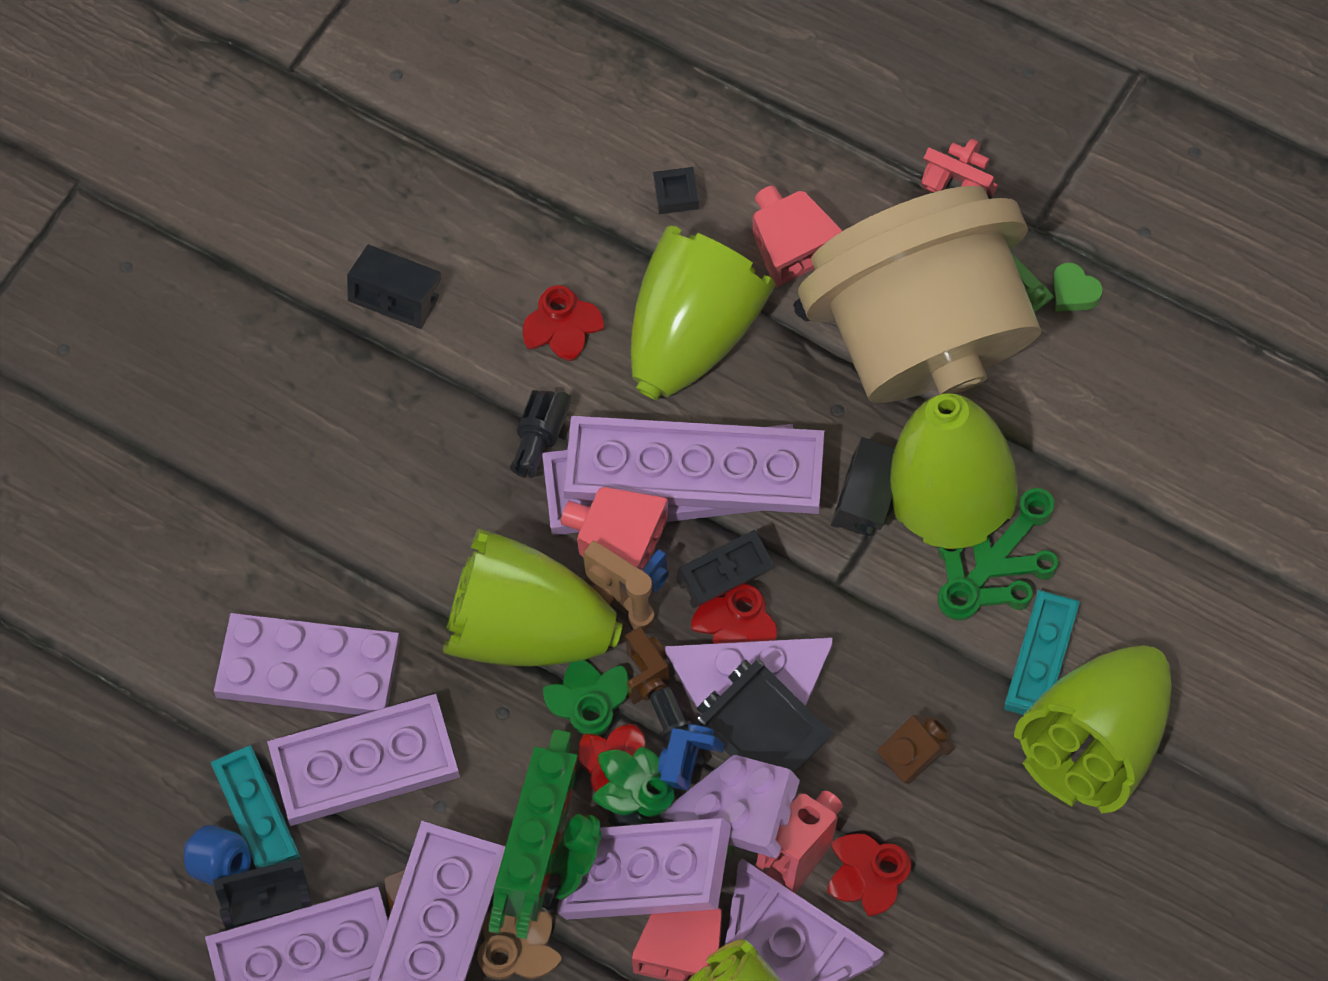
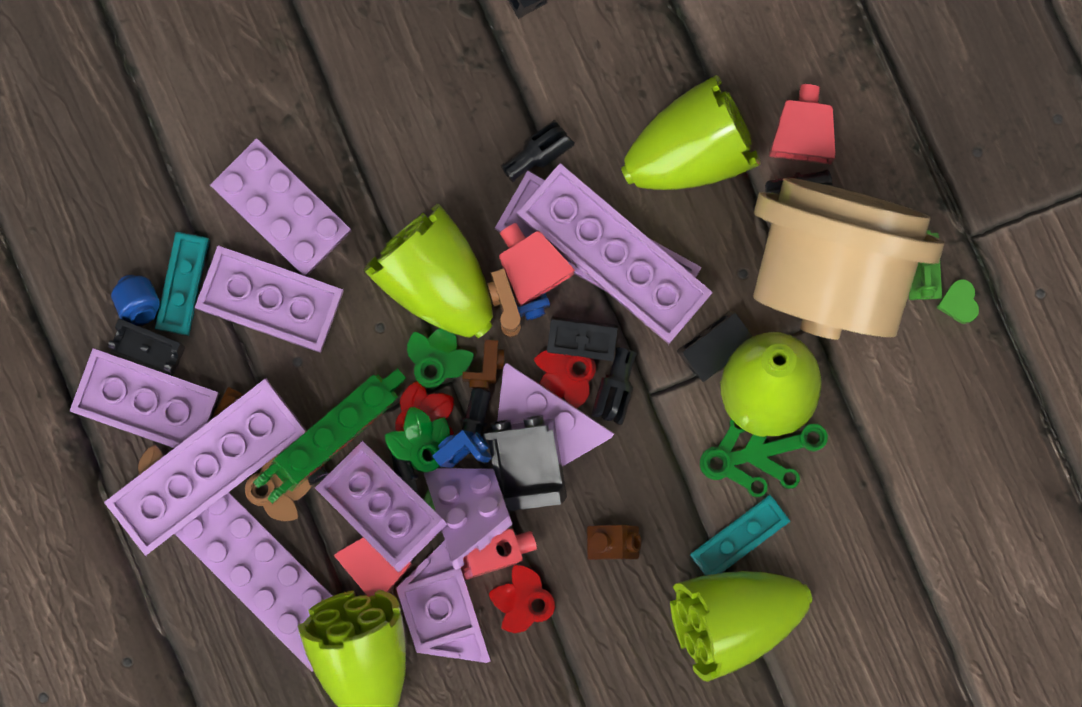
camera: 30 degrees right, 20 degrees up
(562, 328) = (607, 87): red plate -> none
(576, 852) = (349, 463): green plate -> none
(676, 190) = (754, 40): black plate -> none
(798, 596) = (615, 388): none -> black arm
(943, 167) = (939, 153): coral hips -> none

